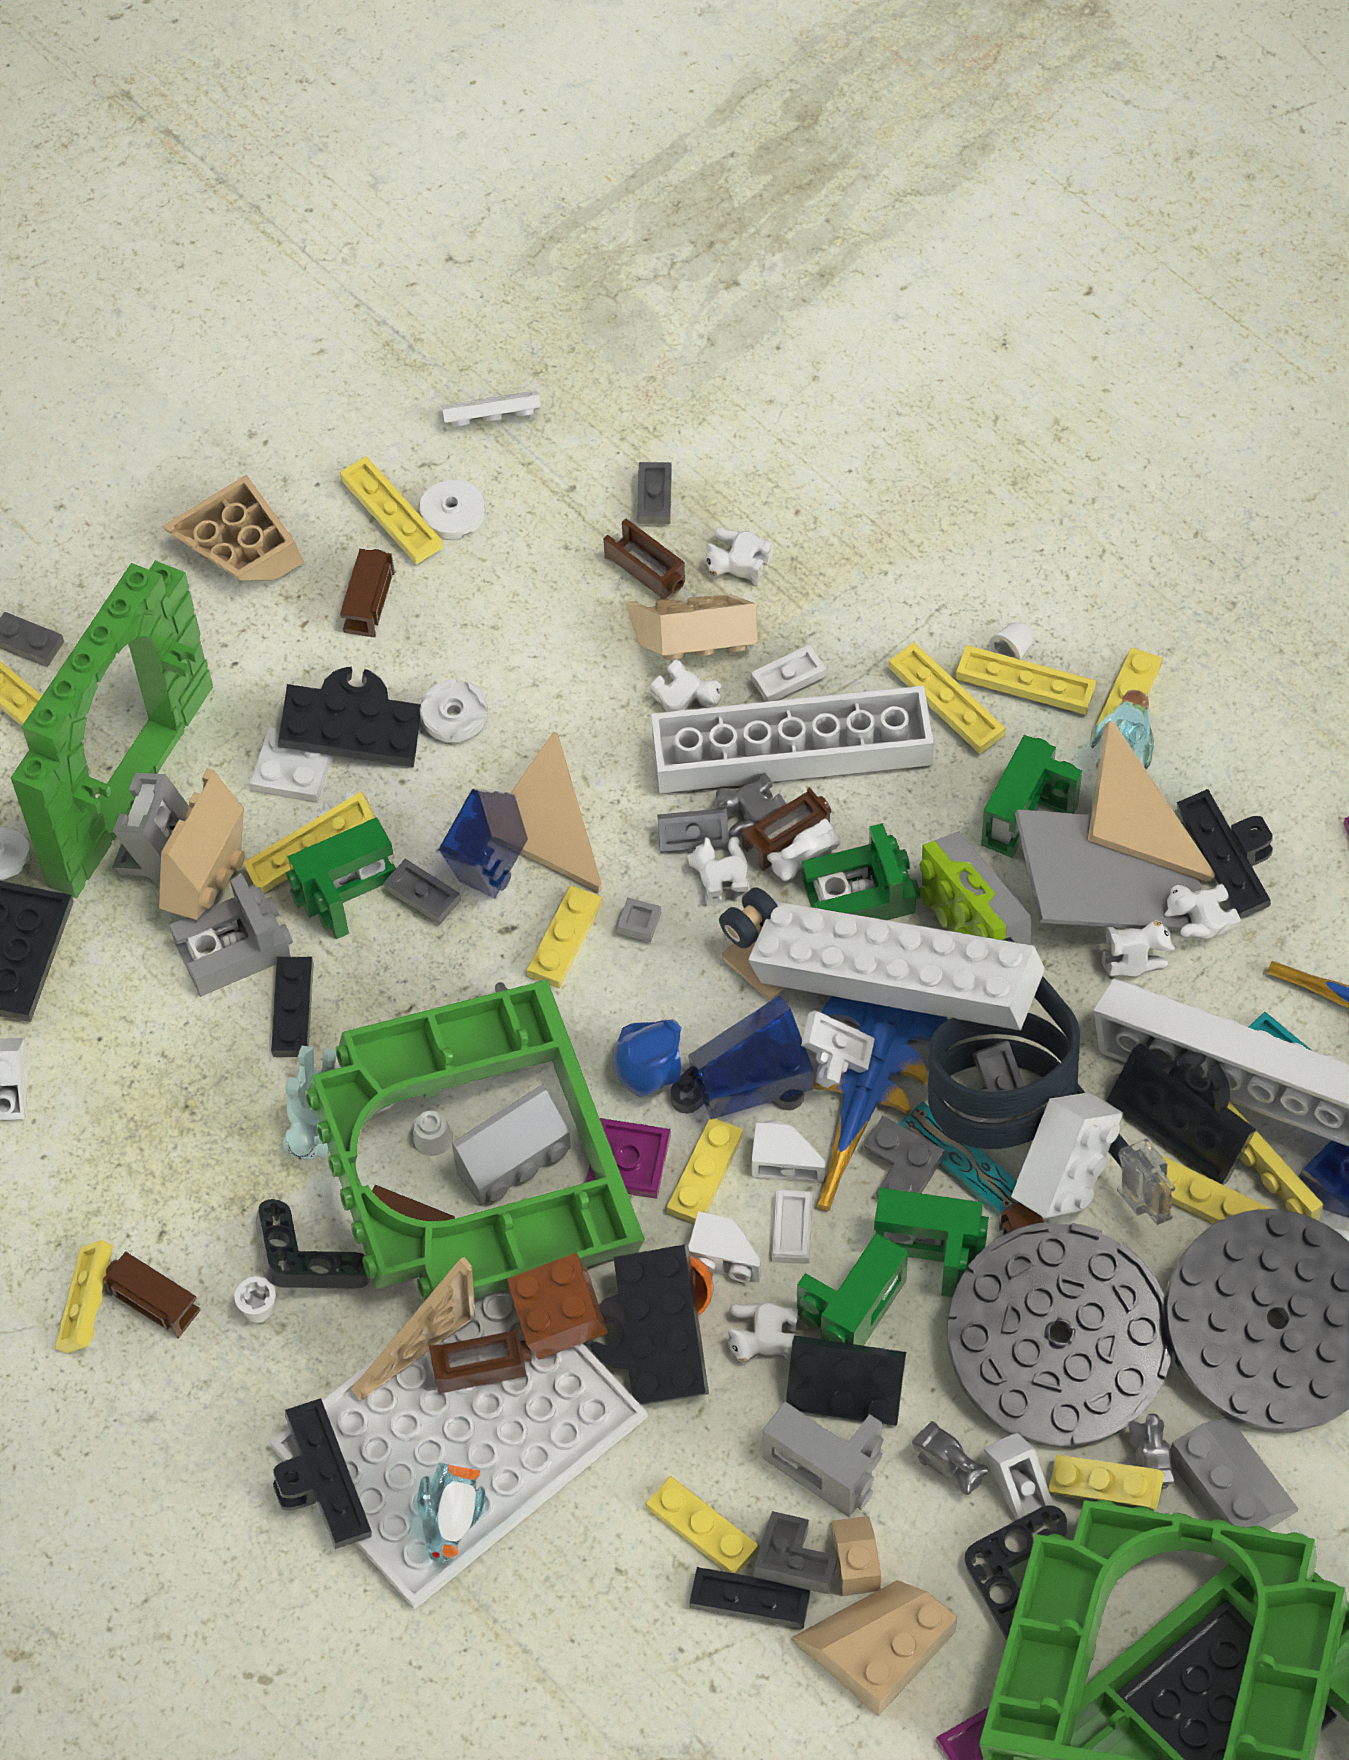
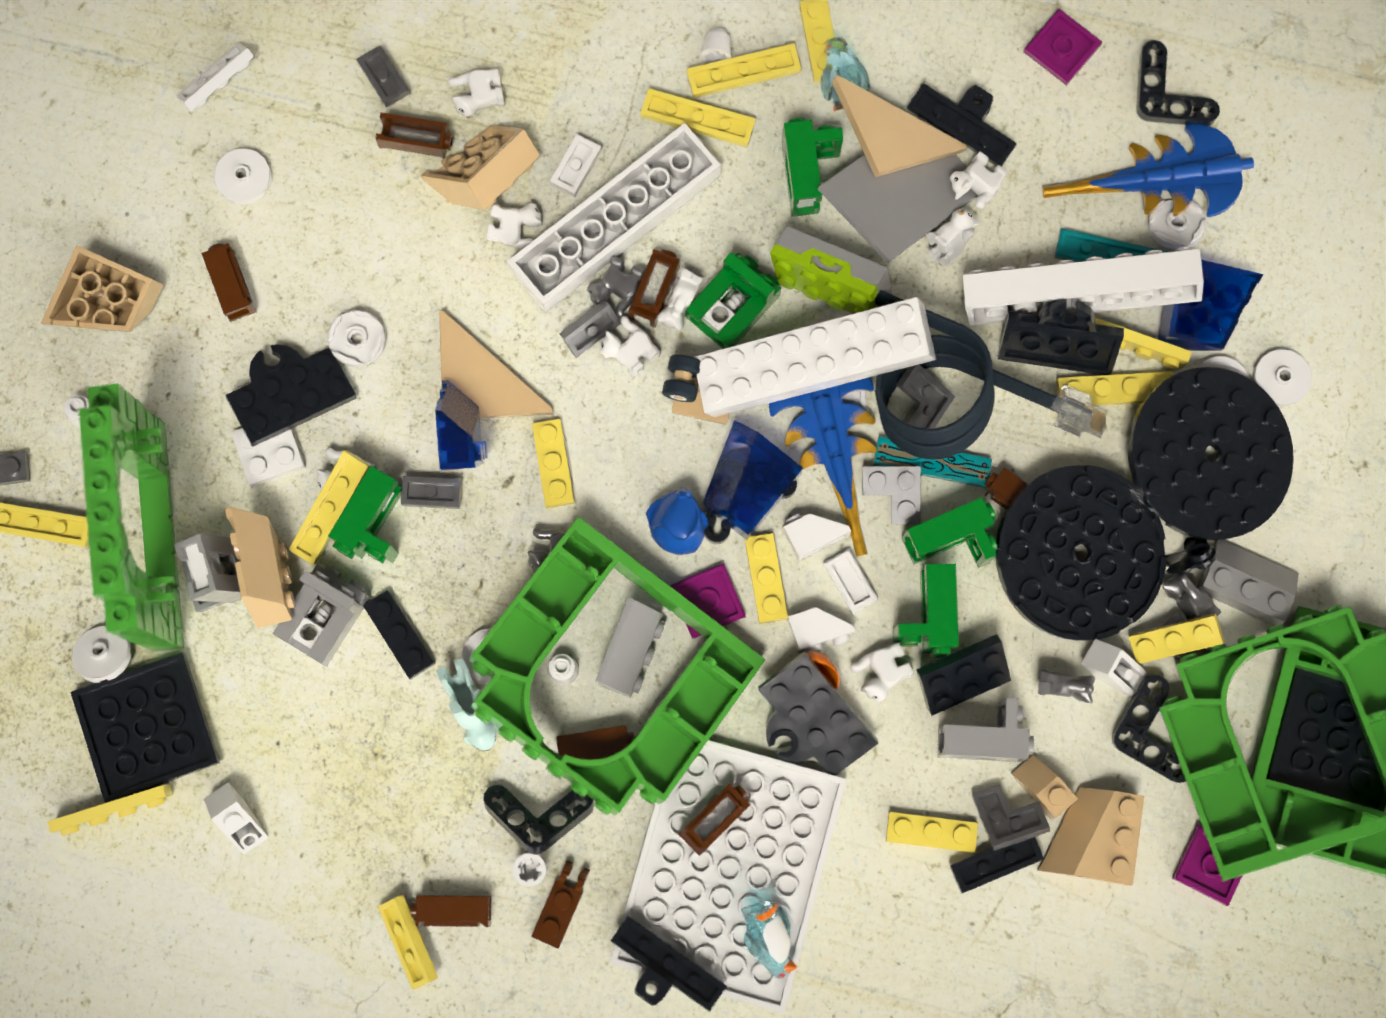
camera: 35 degrees left, 20 degrees up
(262, 1360) = (560, 908): none -> reddish brown hinge
(391, 510) = (198, 204): light yellow plate -> none
(436, 1319) = (674, 816): tan tile -> none
(557, 1306) = (743, 748): dark orange brick -> none
(639, 919) = (597, 420): light grey plate -> none
(836, 1047) = (805, 439): white hinge -> none
(1067, 1155) = (1015, 425): white brick -> none
(1188, 1411) = (1196, 555): none -> black plate

